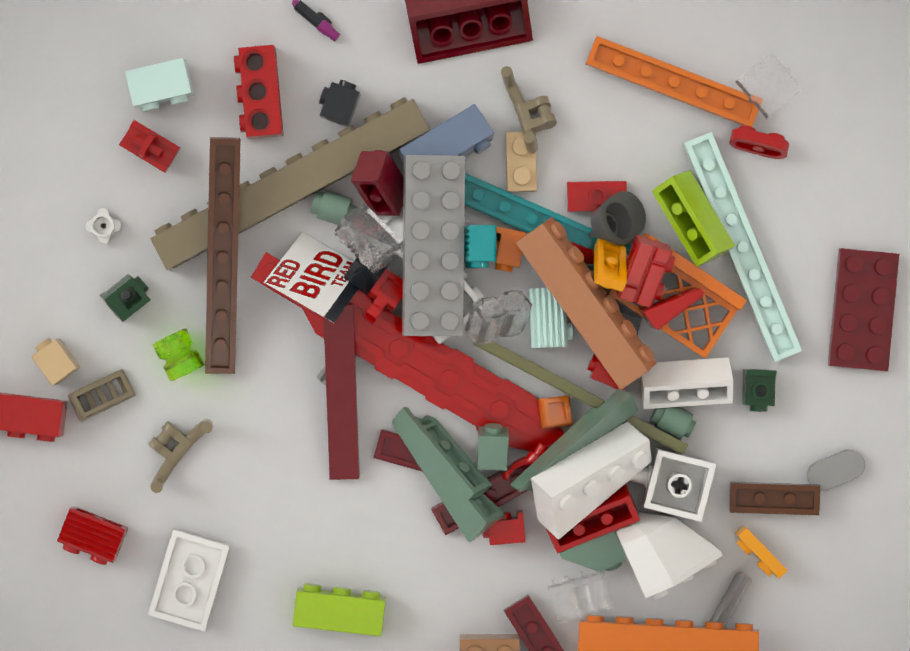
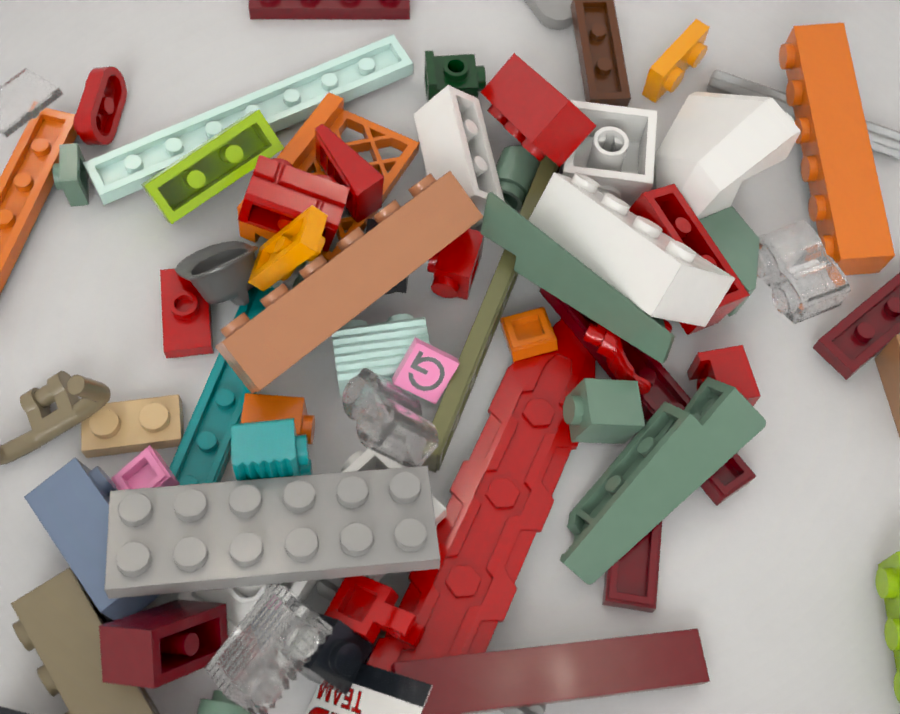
camera: 100 degrees left, 25 degrees down
(483, 170) = (145, 471): none -> bright pink tile
(527, 342) = (425, 371): none -> bright pink tile
(704, 123) = (71, 175): none -> sand green plate
(711, 439) = (536, 112): none -> red brick

